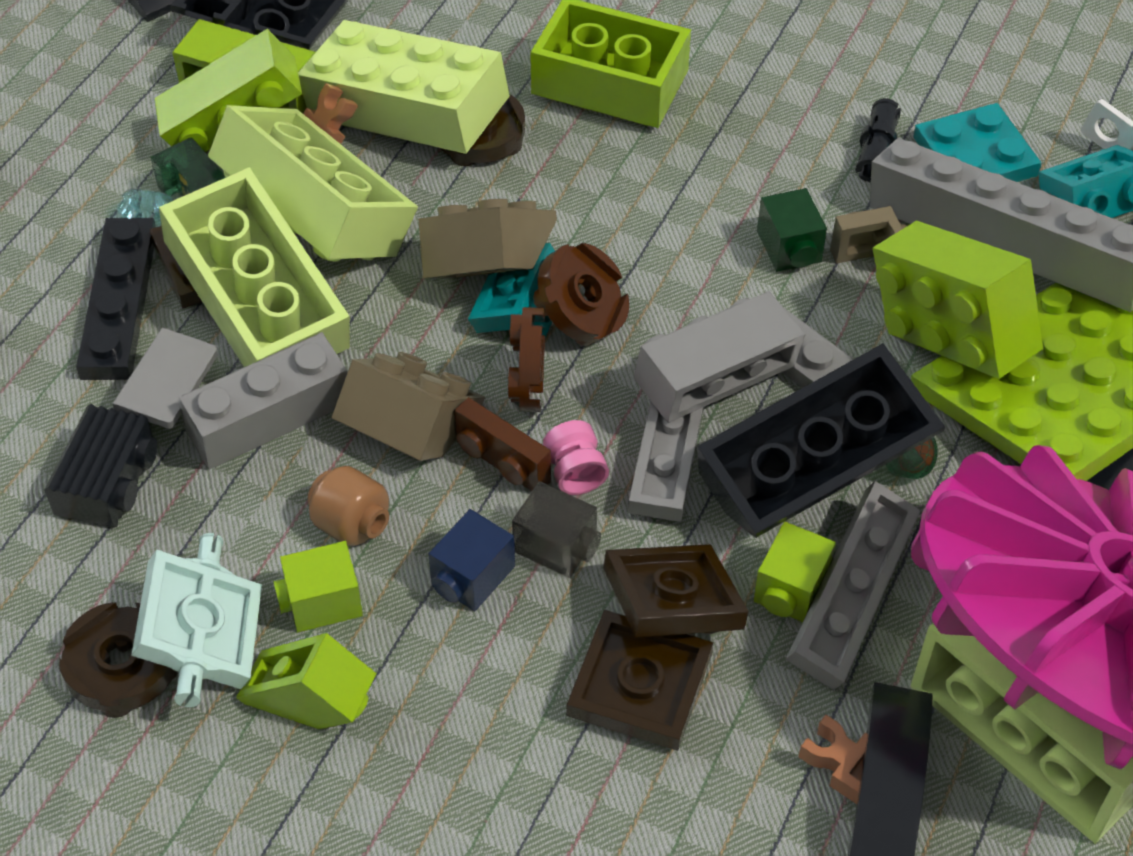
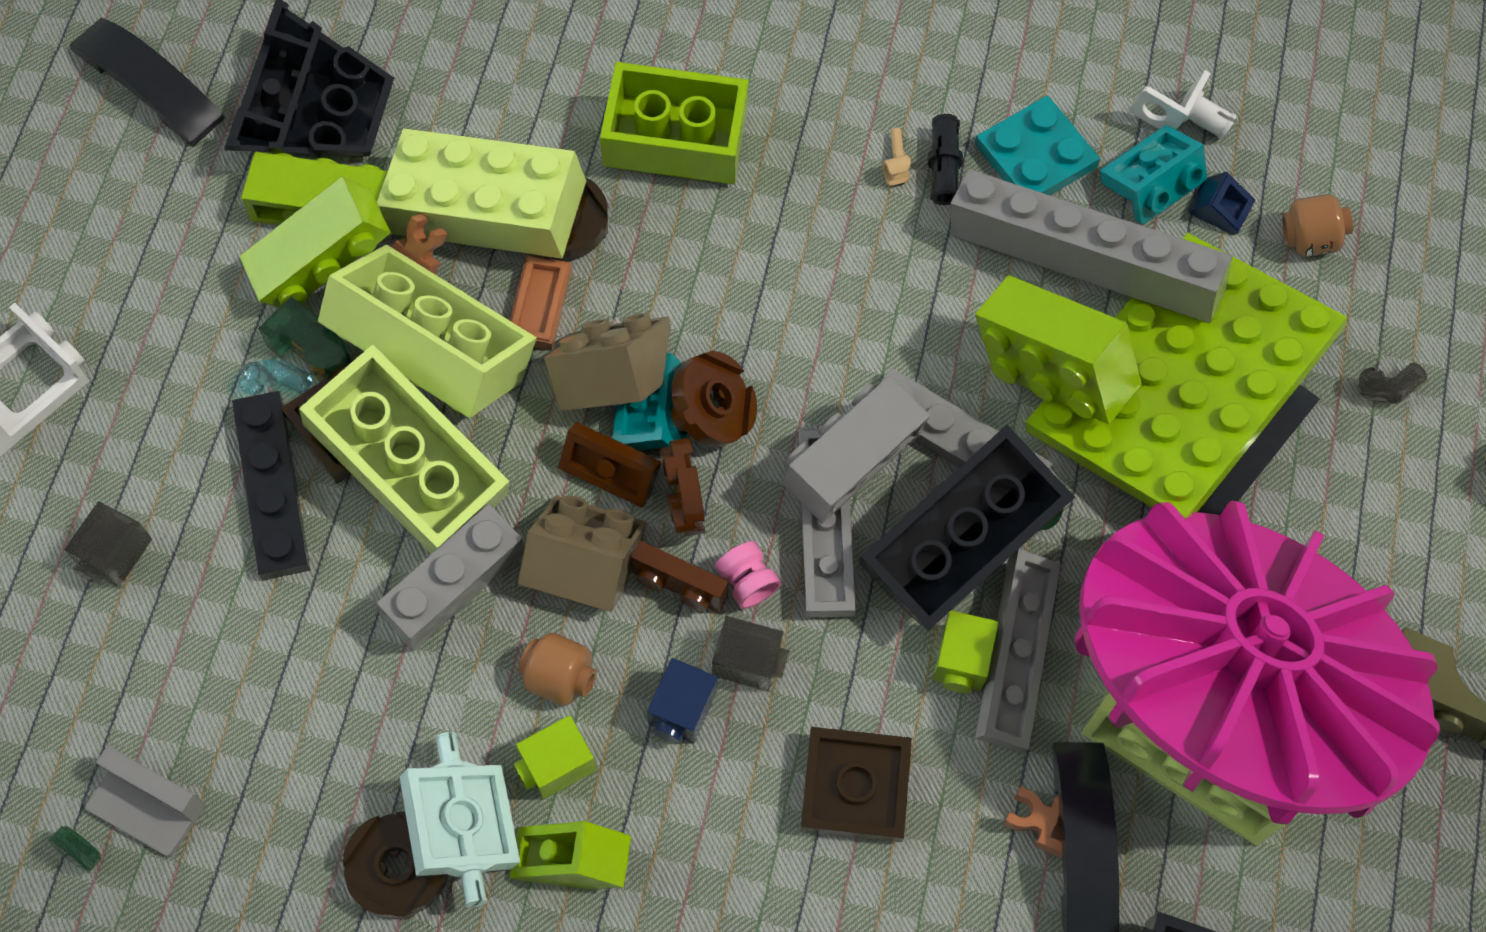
camera: 15 degrees left, 15 degrees up
(101, 466) = (319, 677): black brick -> none
(166, 371) = (352, 578): light grey panel -> none
(439, 184) = (541, 298): none -> nougat tile
(459, 334) = (609, 464): none -> reddish brown plate
(674, 590) = (868, 696): dark brown plate -> none
(791, 229) = (887, 284): dark green brick -> none
(826, 139) = (896, 168): none -> tan hand
(860, 231) = (955, 274): dark tan bracket -> none

